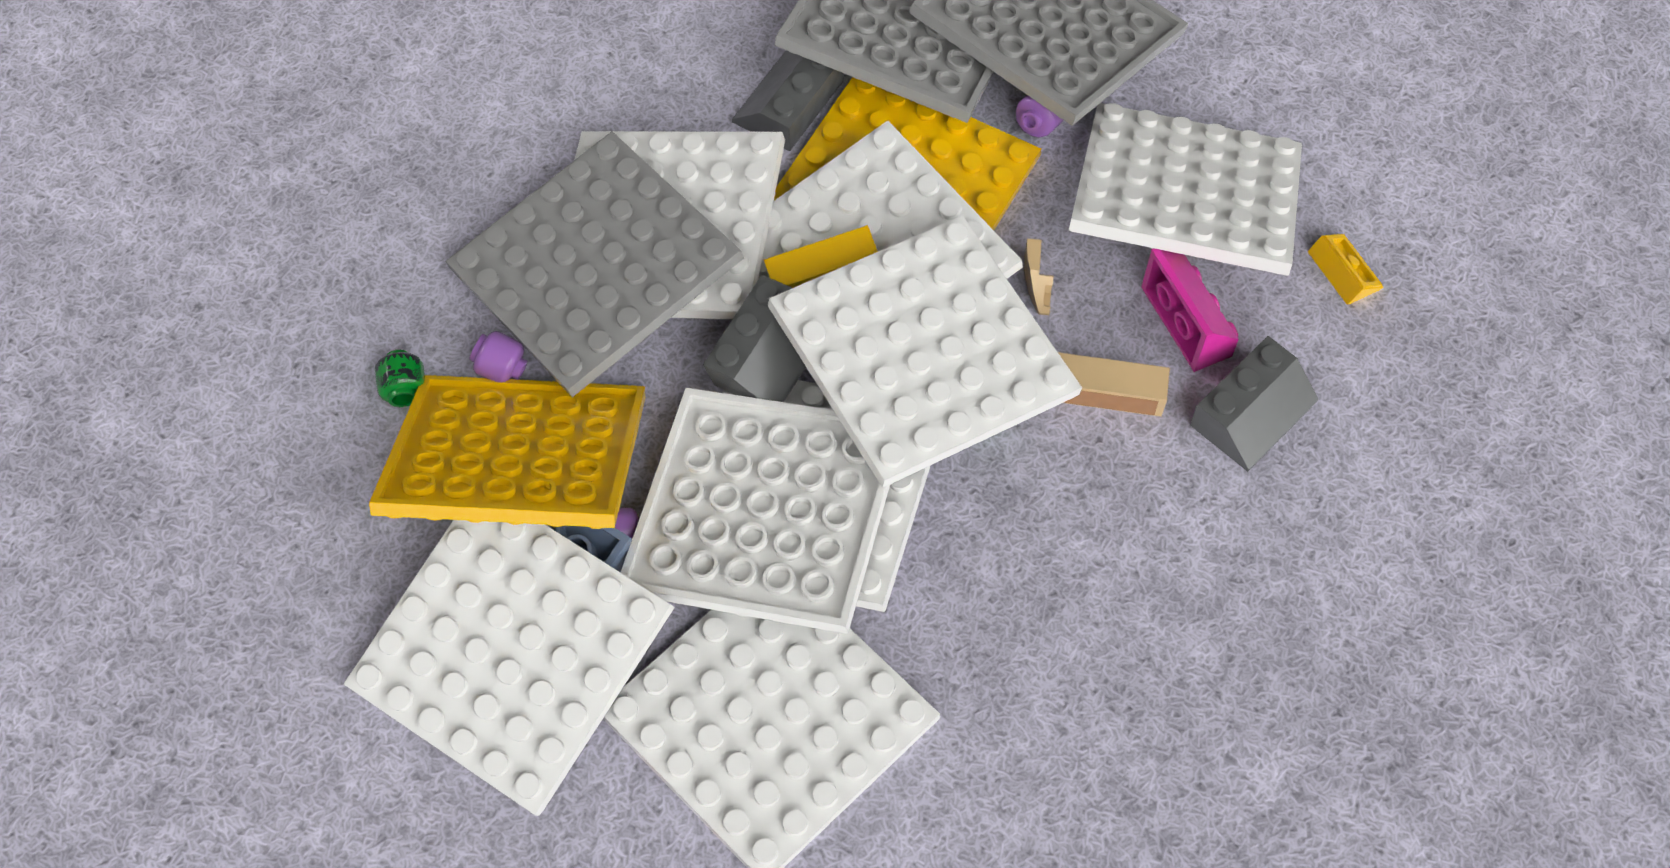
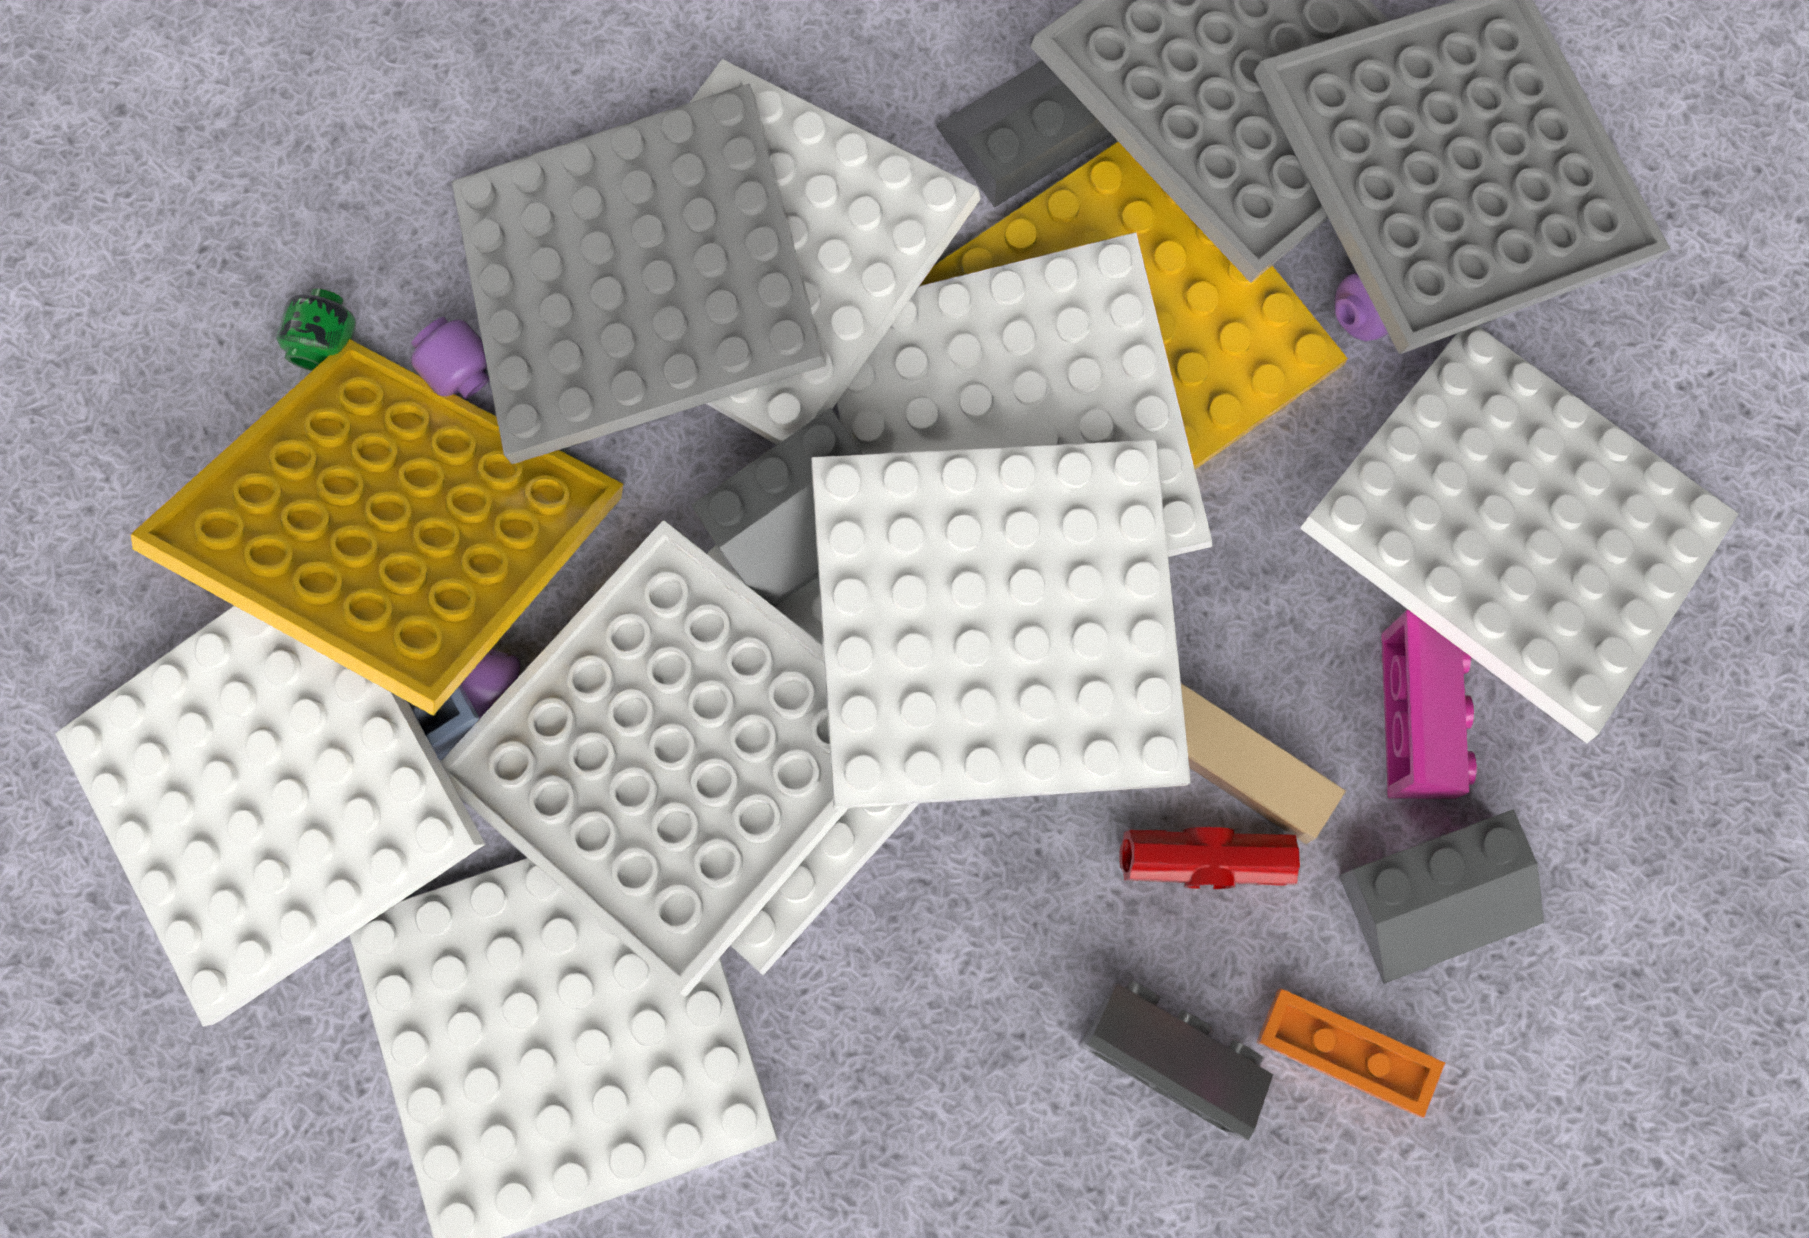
camera: 30 degrees right, 15 degrees up
(820, 257) = (934, 413): yellow tile -> none
(1038, 285) = (1232, 574): tan slope -> none
(1111, 442) = (1209, 857): none -> red piece
(1154, 559) = (1179, 1059): none -> dark grey slope
(1250, 513) = (1350, 1053): none -> orange plate
(1344, 267) = (1695, 737): yellow slope -> none

